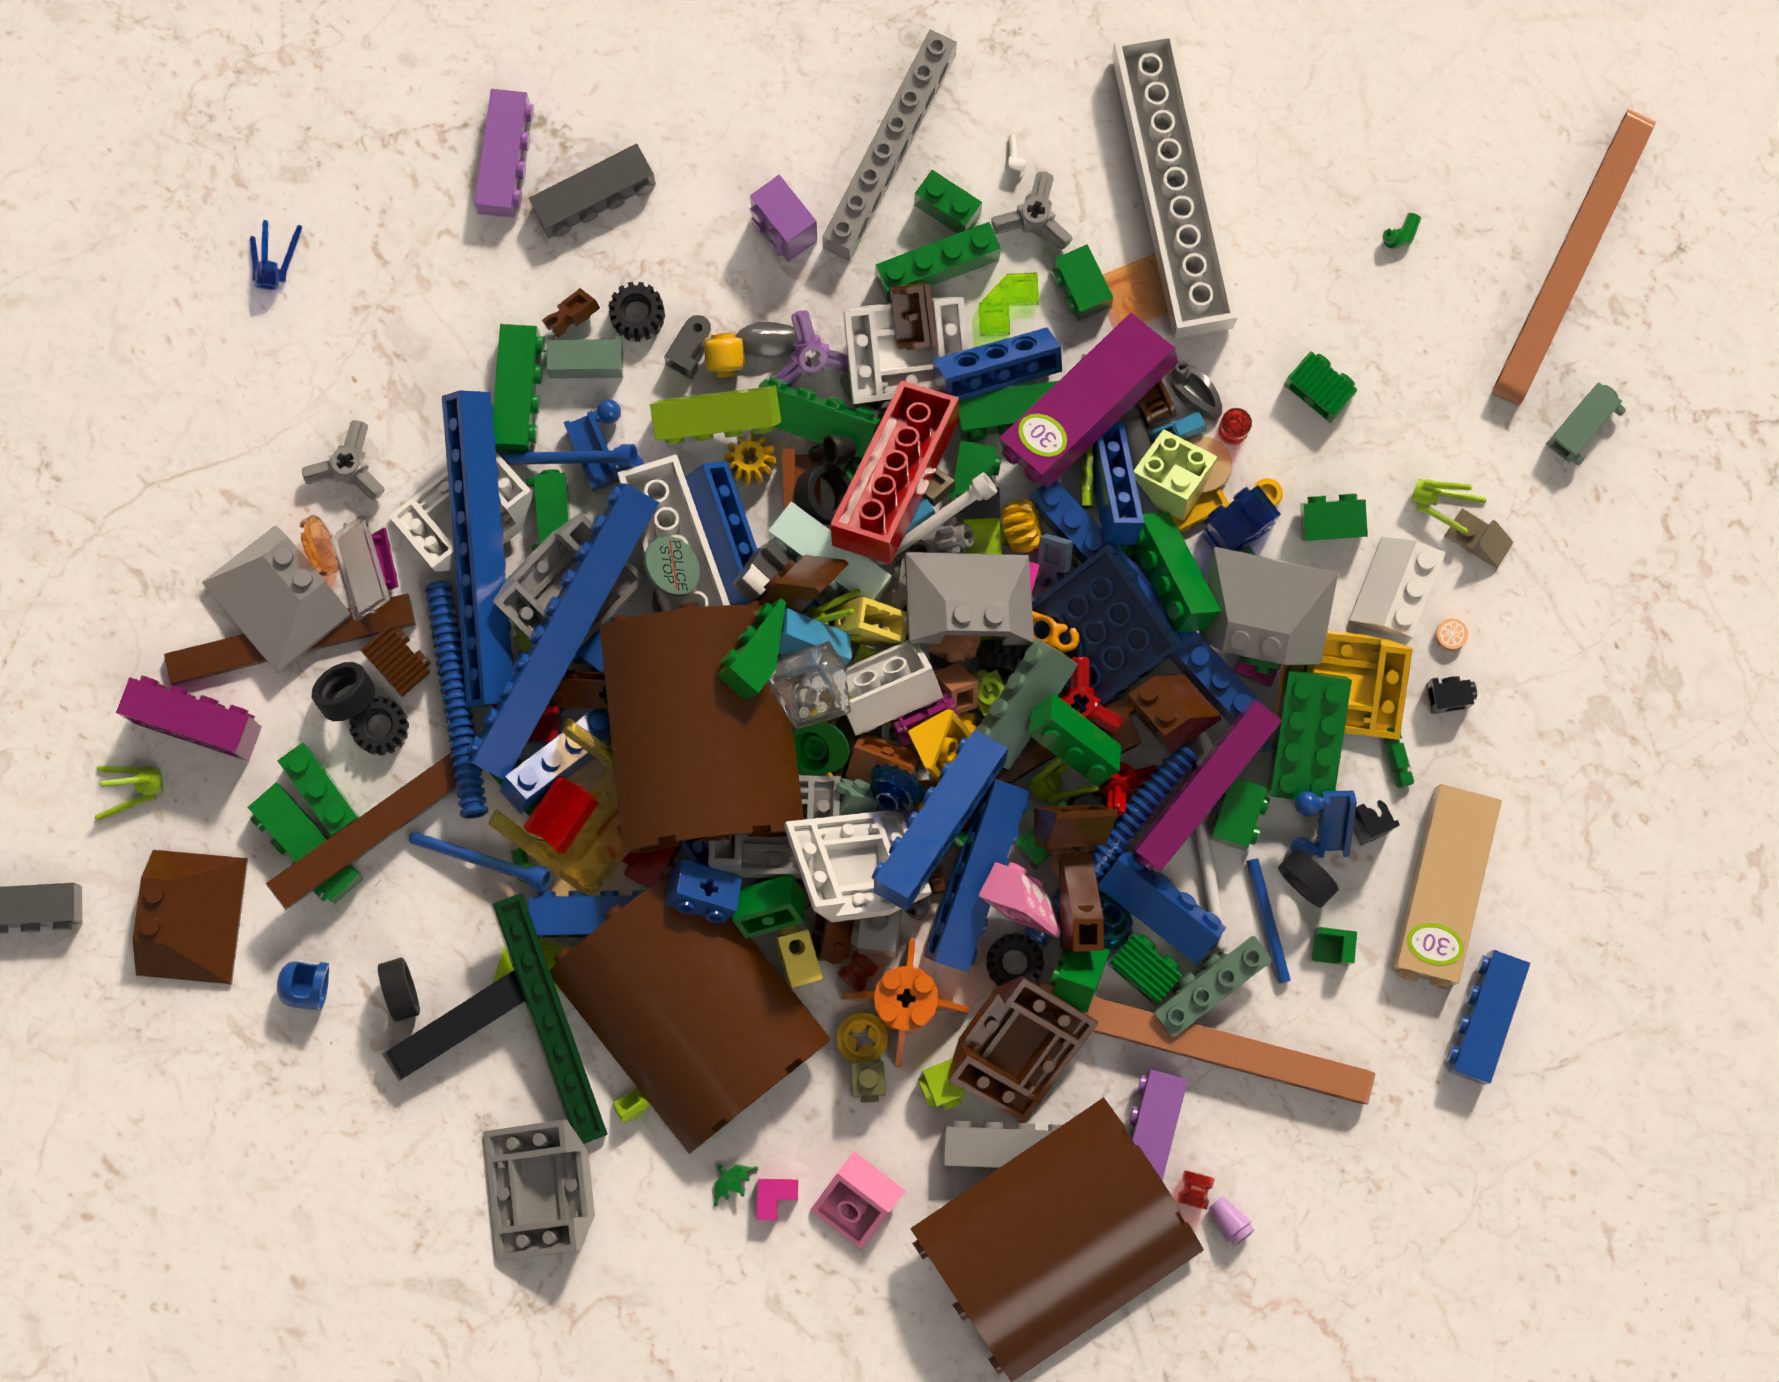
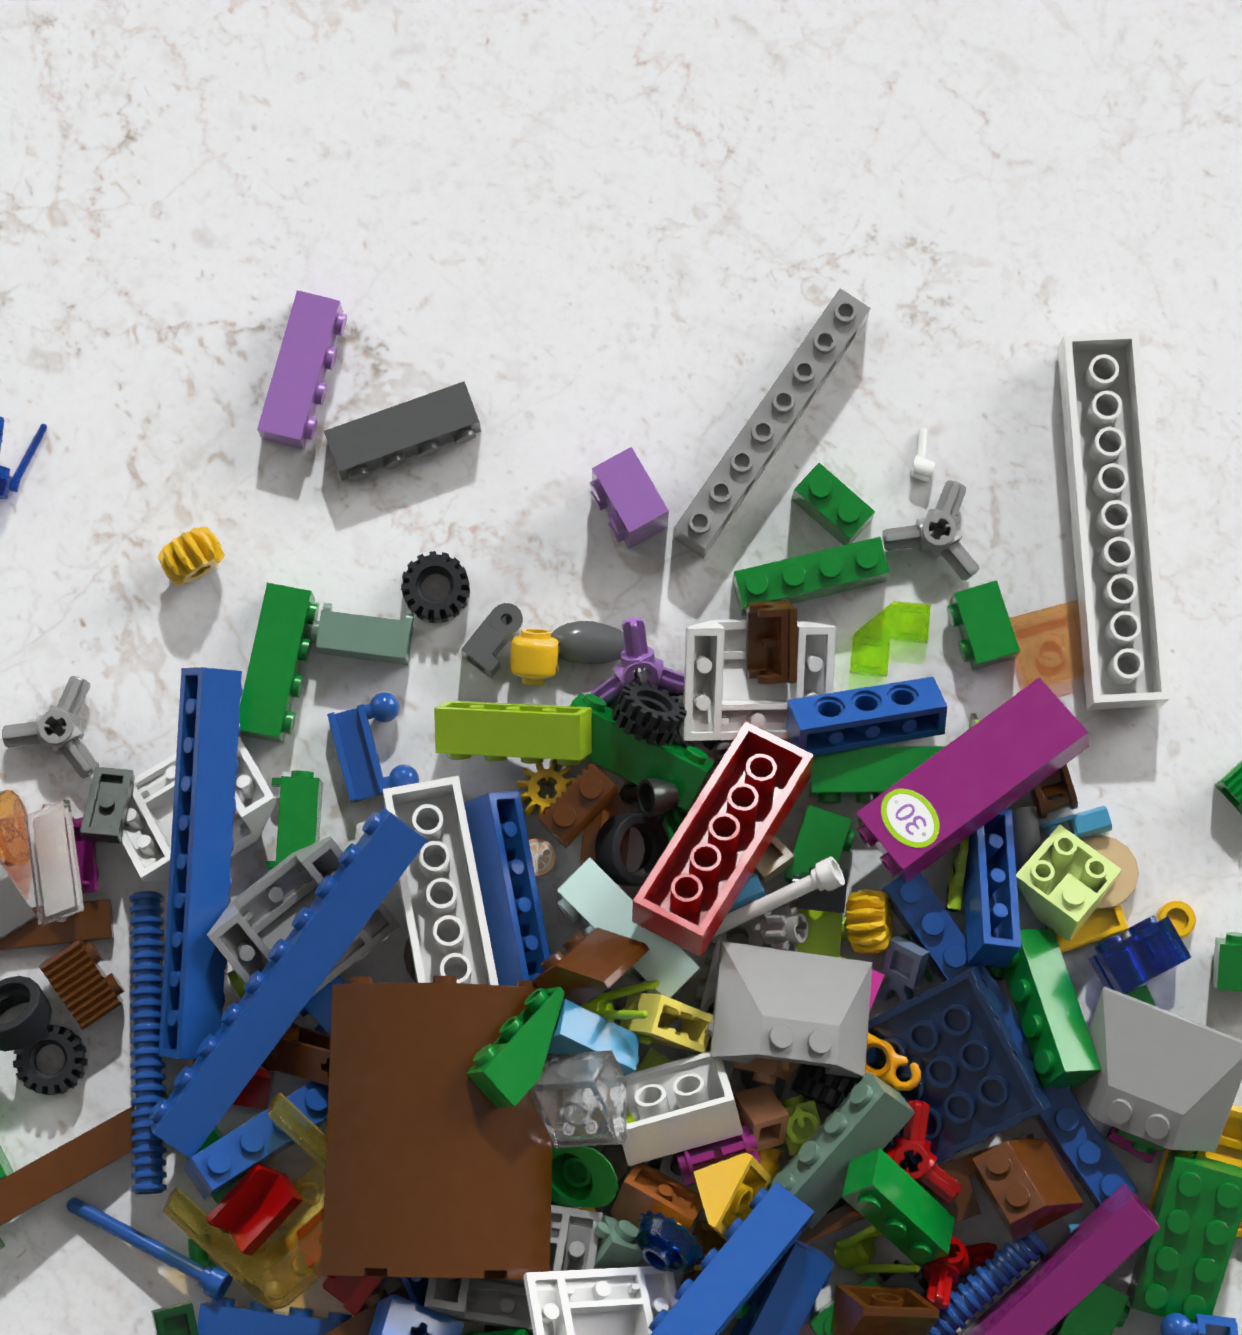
camera: 10 degrees right, 0 degrees up
(396, 517) = (107, 805): none -> pearl dark grey plate
(435, 311) = (191, 555): none -> yellow gear
(574, 310) = (357, 576): reddish brown plate -> none
(624, 456) = (393, 769): blue piece -> none
(672, 566) = (432, 920): sand green piece -> none
(754, 512) = (542, 856): none -> light nougat tile
(760, 569) = (540, 938): dark grey leg -> none
(776, 463) = (578, 805): none -> reddish brown brick
(822, 384) = (649, 713): none -> black tyre
(1195, 390) = (1106, 779): dark grey arm -> none
(1230, 431) = (1141, 834): clear red wheel -> none

